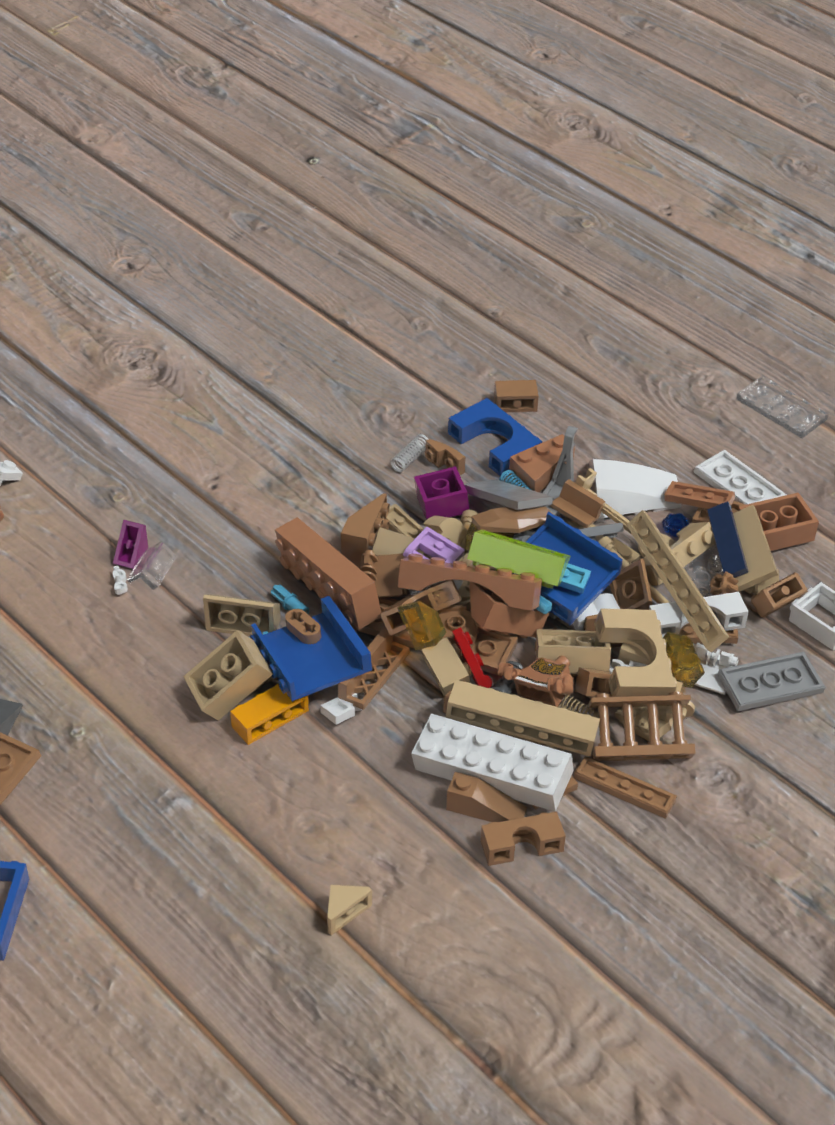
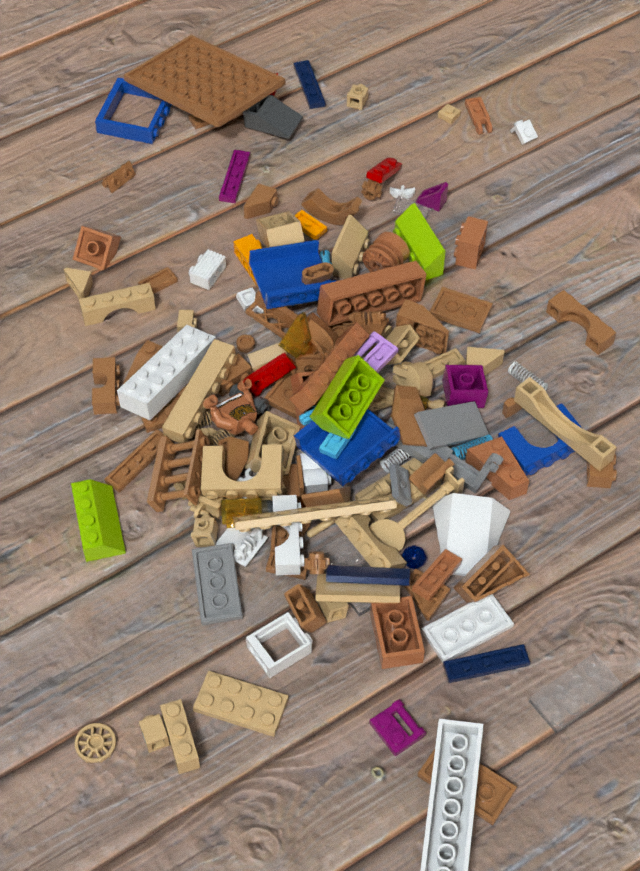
camera: 100 degrees right, 10 degrees up
(91, 592) = (384, 170): none -> red plate
(98, 762) = (234, 176): none -> magenta tile
(122, 907) = (119, 177): none -> medium nougat hinge
(124, 605) = (371, 189): none -> medium nougat gear
(154, 719) = (261, 201): none -> medium nougat slope
(166, 645) = (328, 210): none -> medium nougat arch
(194, 657) = (310, 225): none -> light orange plate
(218, 499) = (470, 242): none -> nougat brick
(222, 545) = (421, 241): none -> lime slope
(250, 573) = (386, 252): none -> nougat wheel
(273, 894) = (96, 247): none -> nougat slope
(293, 759) = (207, 269): none -> white brick
(319, 819) = (160, 280): none -> medium nougat tile
(321, 508) = (461, 309): none -> medium nougat plate
(336, 401) = (565, 308): none -> medium nougat arch
(390, 866) = (97, 307): none -> tan arch
(395, 767) = (186, 317): none -> tan brick
(398, 487) = (488, 358): none -> tan slope
(410, 707) = (245, 343): none -> medium nougat tile
(464, 425) = (590, 446): none -> tan arch
(683, 461) = (490, 574): none -> medium nougat wedge
(711, 697) = (205, 527): none -> tan brick
(732, 809) = (97, 520): none -> lime slope
(773, 467) = (486, 663): none -> dark blue tile

